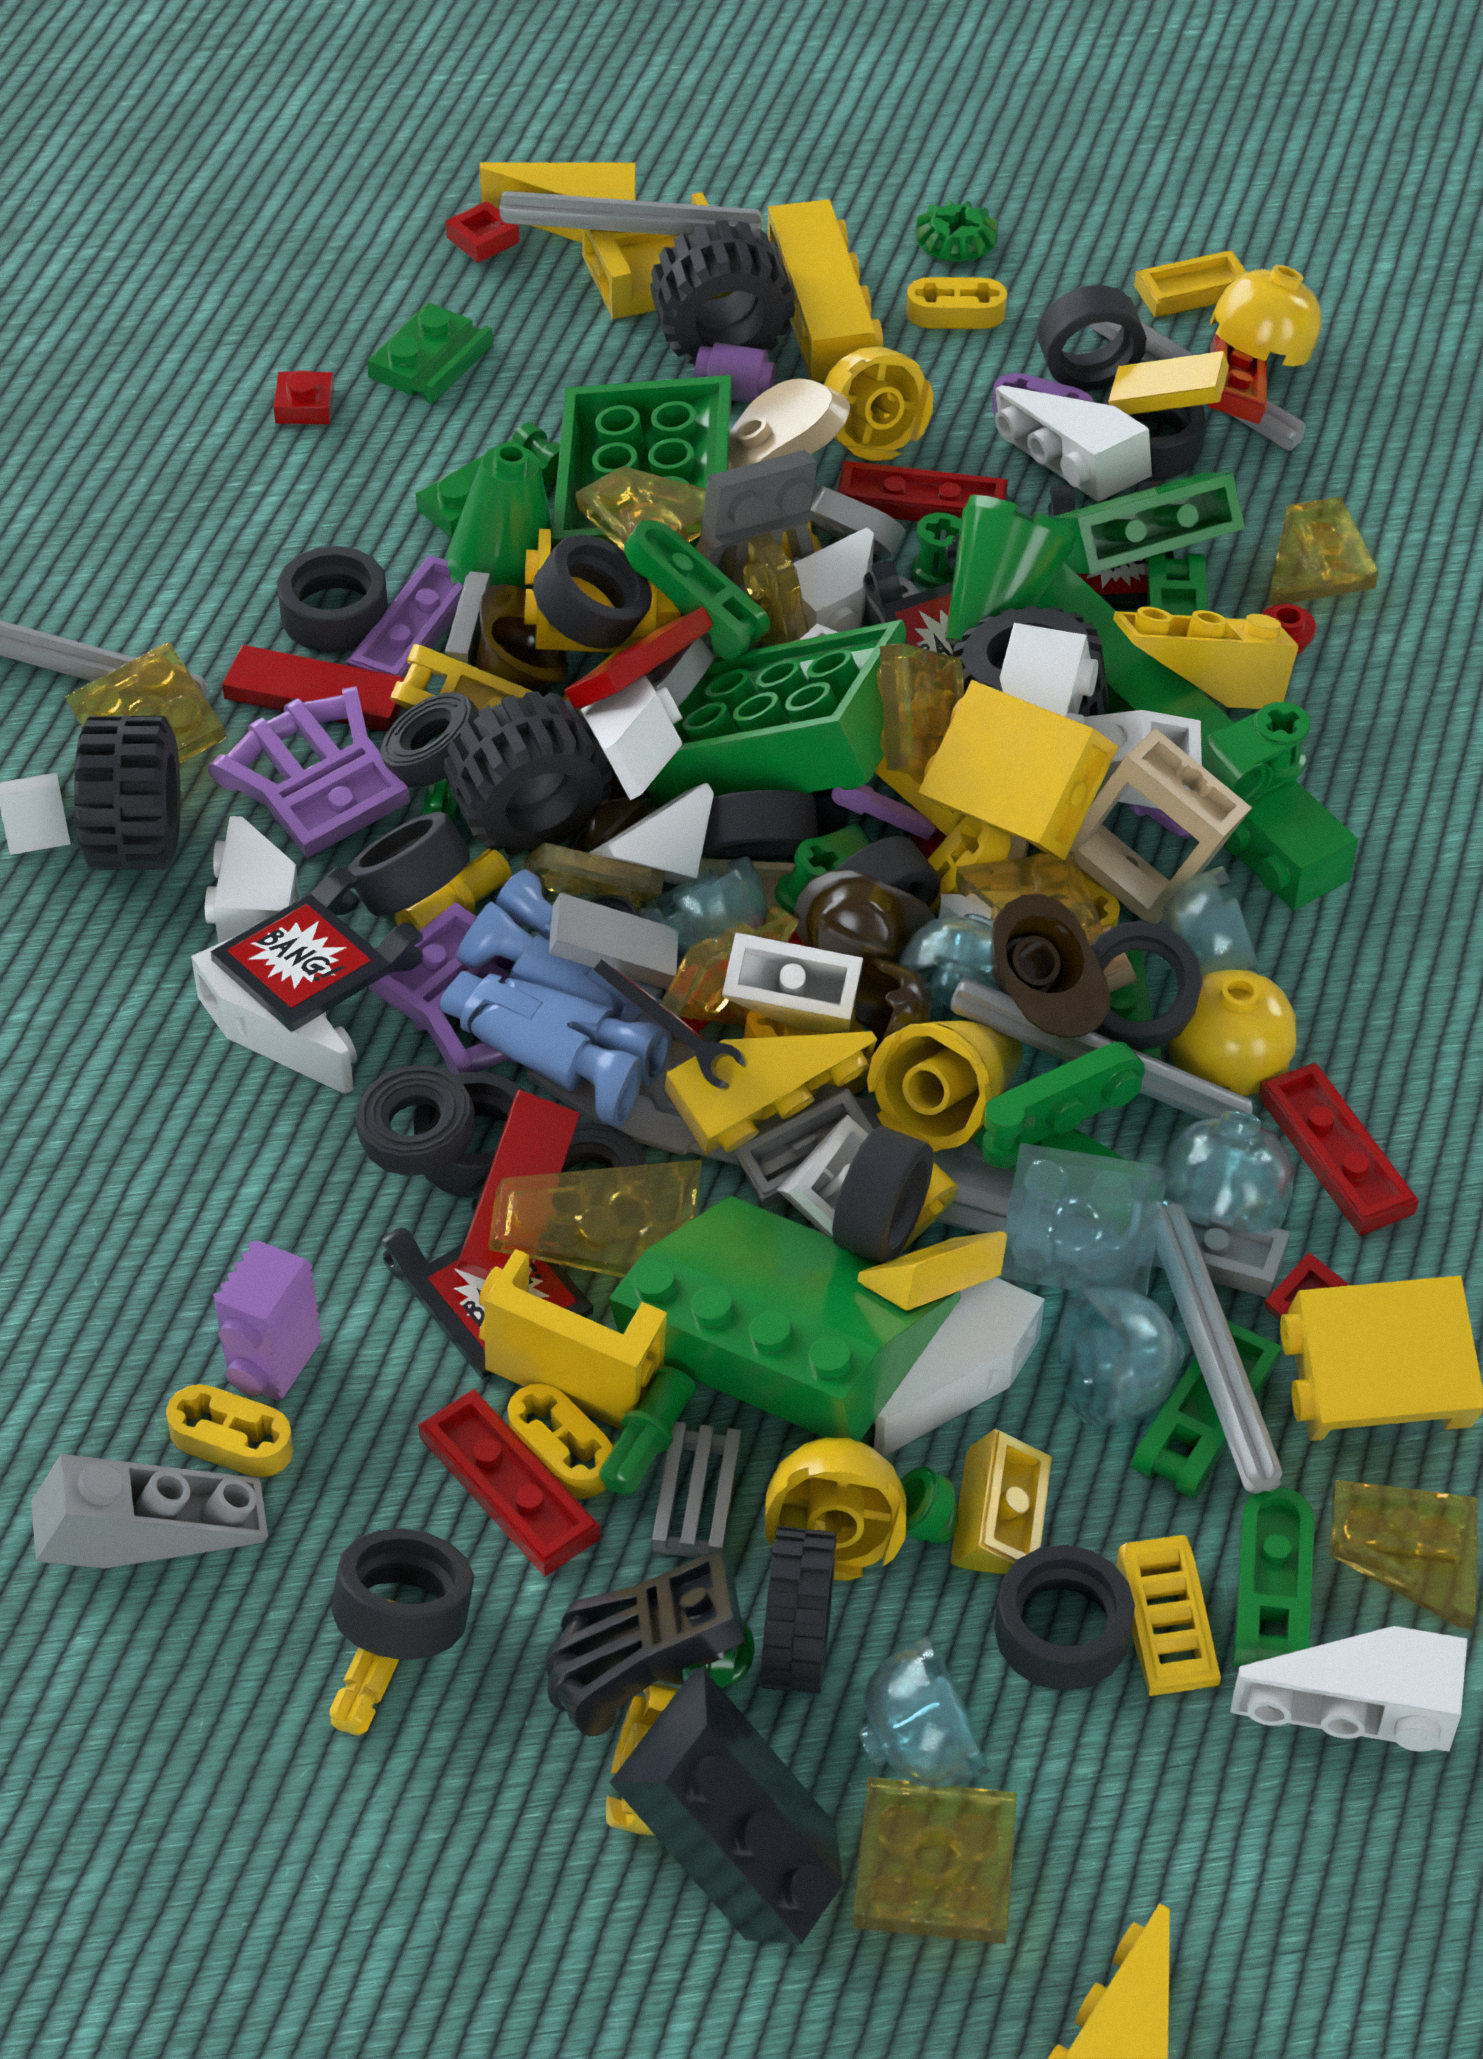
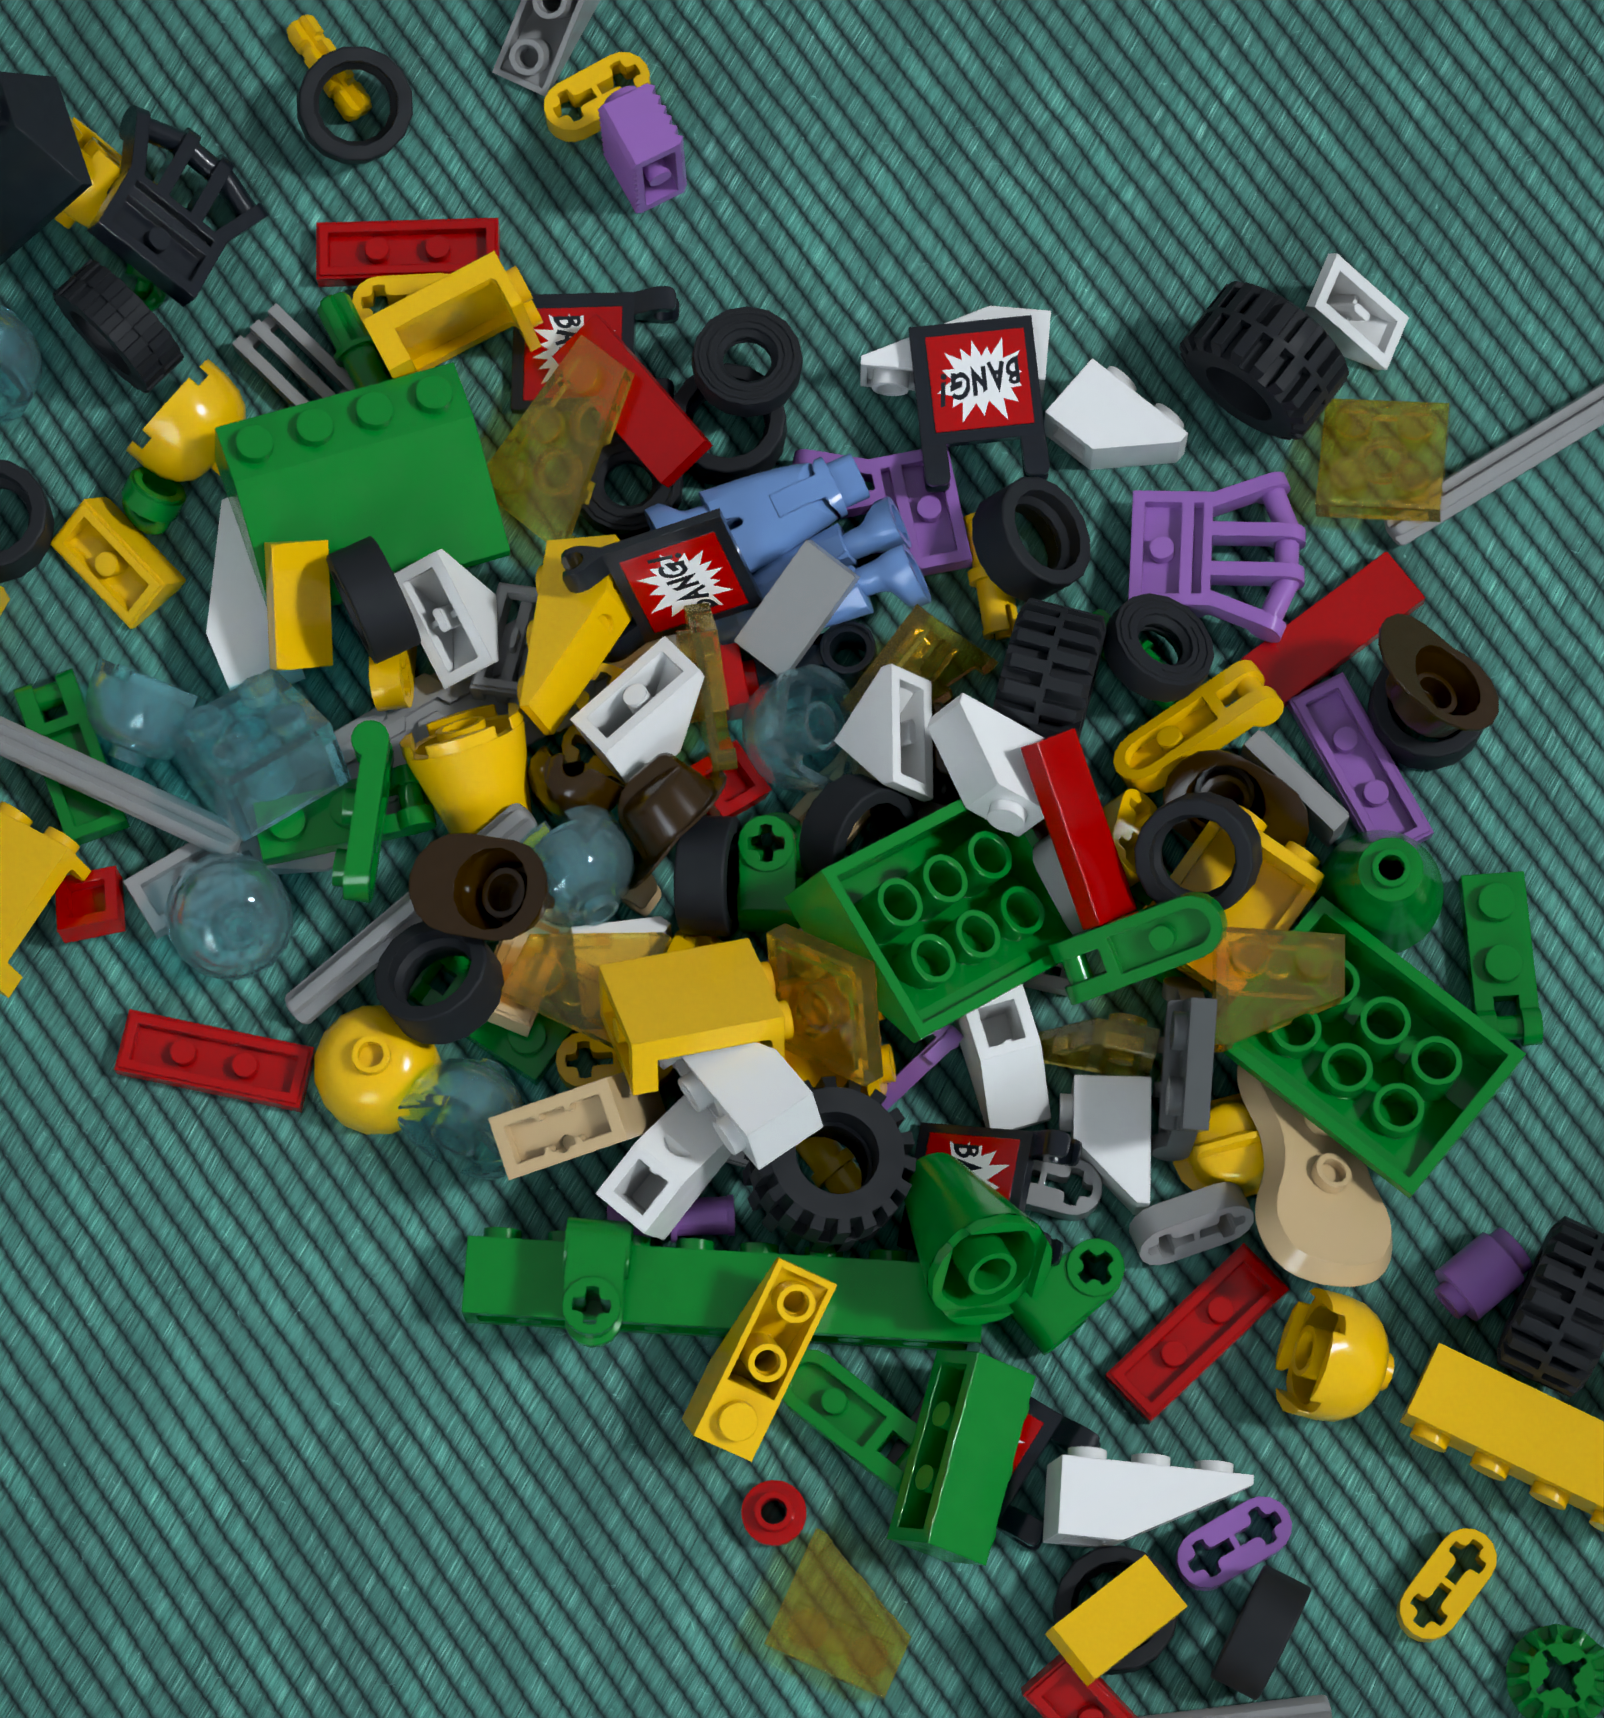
camera: 130 degrees right, 25 degrees up
(327, 558) = (1432, 682): none -> dark brown piece

